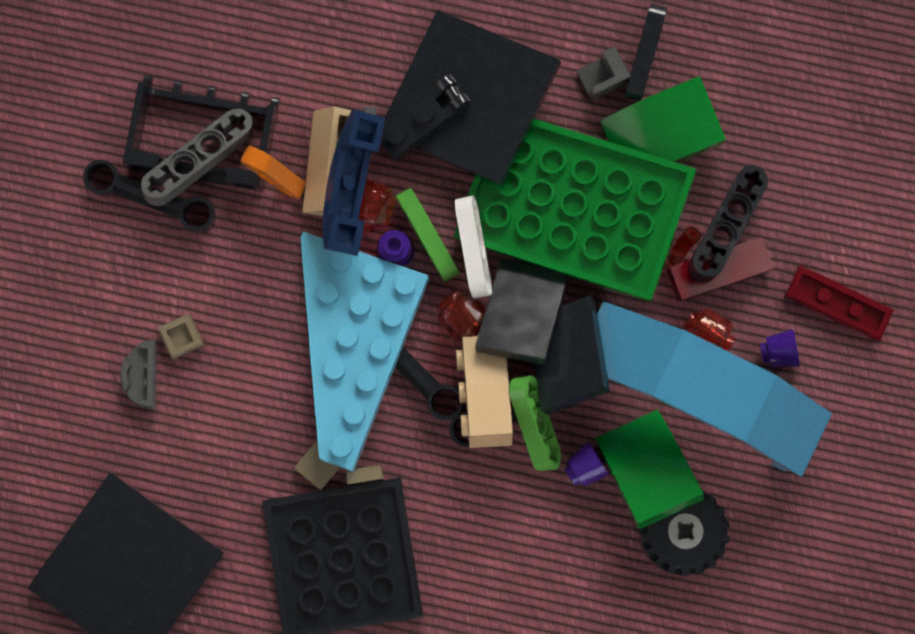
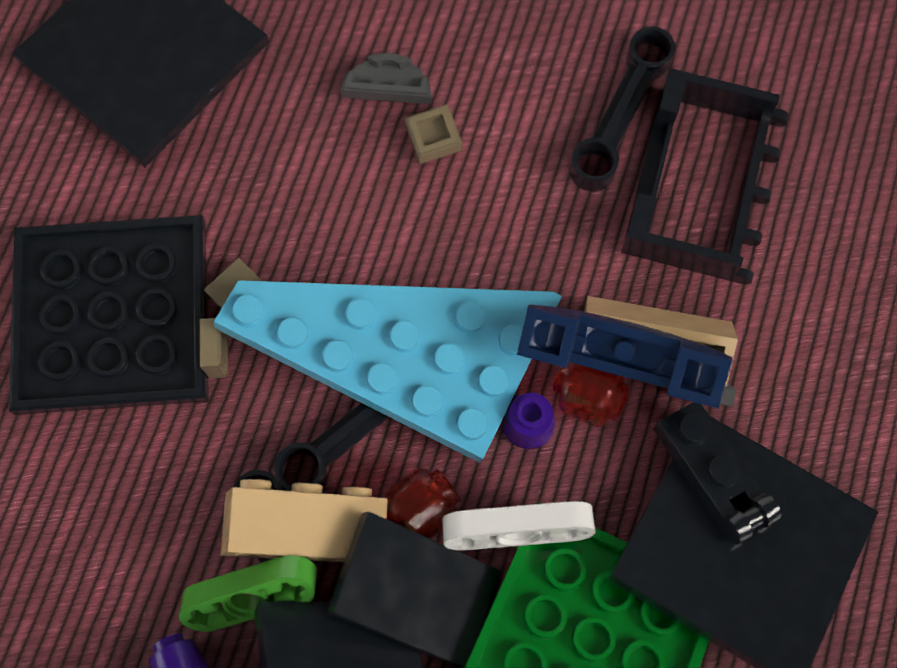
camera: 95 degrees right, 10 degrees down
(202, 161) = (679, 160): dark grey beam -> none
(273, 172) = (646, 250): orange beam -> none
(427, 235) = (543, 465): bright green beam -> none

